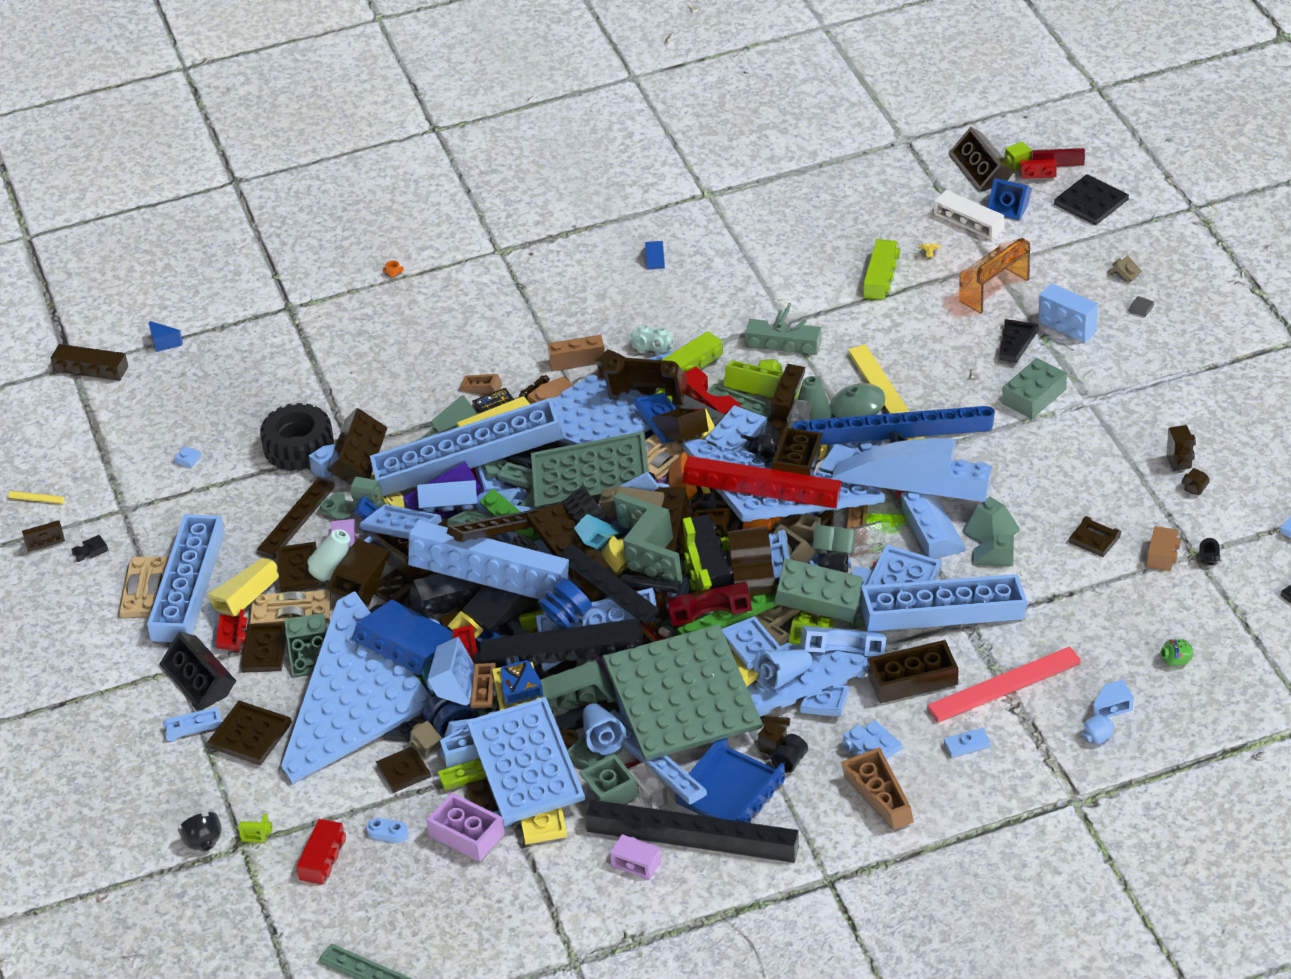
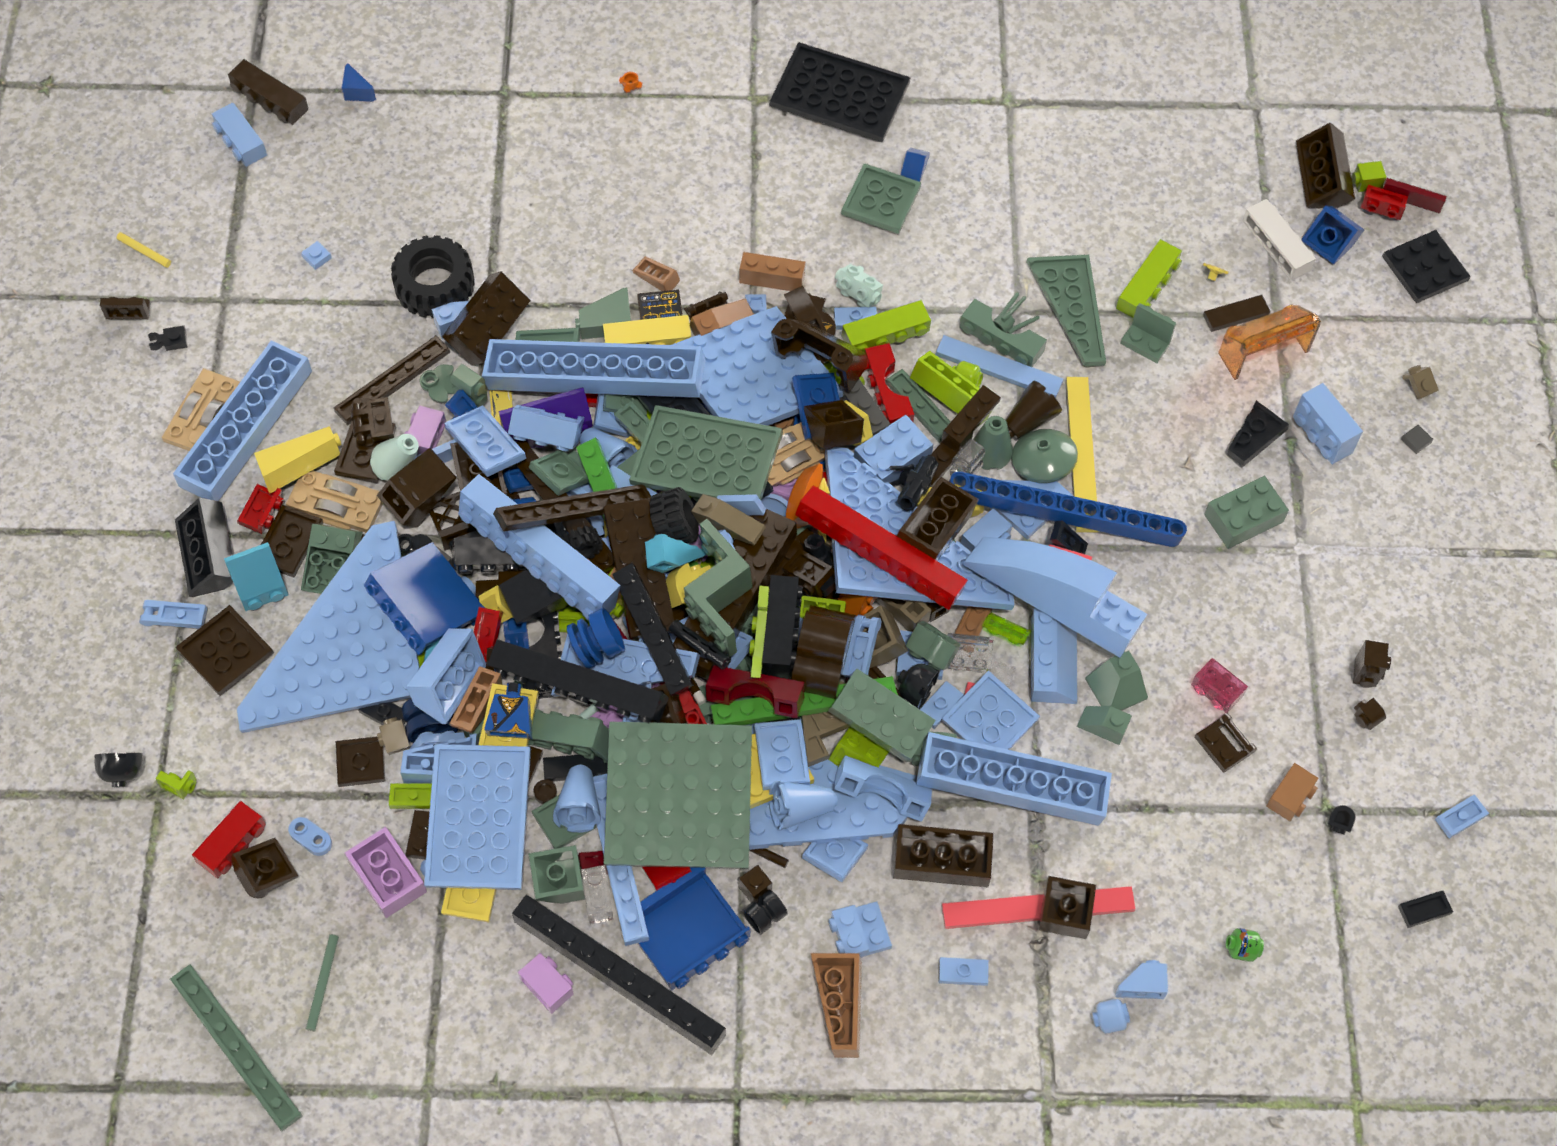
camera: 15 degrees right, 20 degrees up
(79, 396) = (238, 134): none -> light blue brick
(254, 668) = (256, 577): none -> medium azure slope
(302, 540) = (380, 420): none -> dark brown plate
(359, 860) = (263, 868): none -> dark brown slope
(451, 933) = (322, 983): none -> sand green bar
(569, 225) = (840, 91): none -> black plate
(573, 377) = (757, 302): none -> light blue tile
(639, 282) = (881, 198): none -> sand green plate
(693, 755) = (664, 875): none -> red piece
(807, 359) = (997, 365): none -> light blue tile
(827, 298) = (1072, 296): none -> sand green wing
(835, 371) = (1032, 410): none -> dark brown cone
(899, 299) = (1149, 333): none -> sand green bracket
(951, 275) = (1236, 313): none -> dark brown tile
(1027, 668) = (1067, 907): none -> dark brown brick
(1071, 500) = (1219, 685): none -> clear pink brick

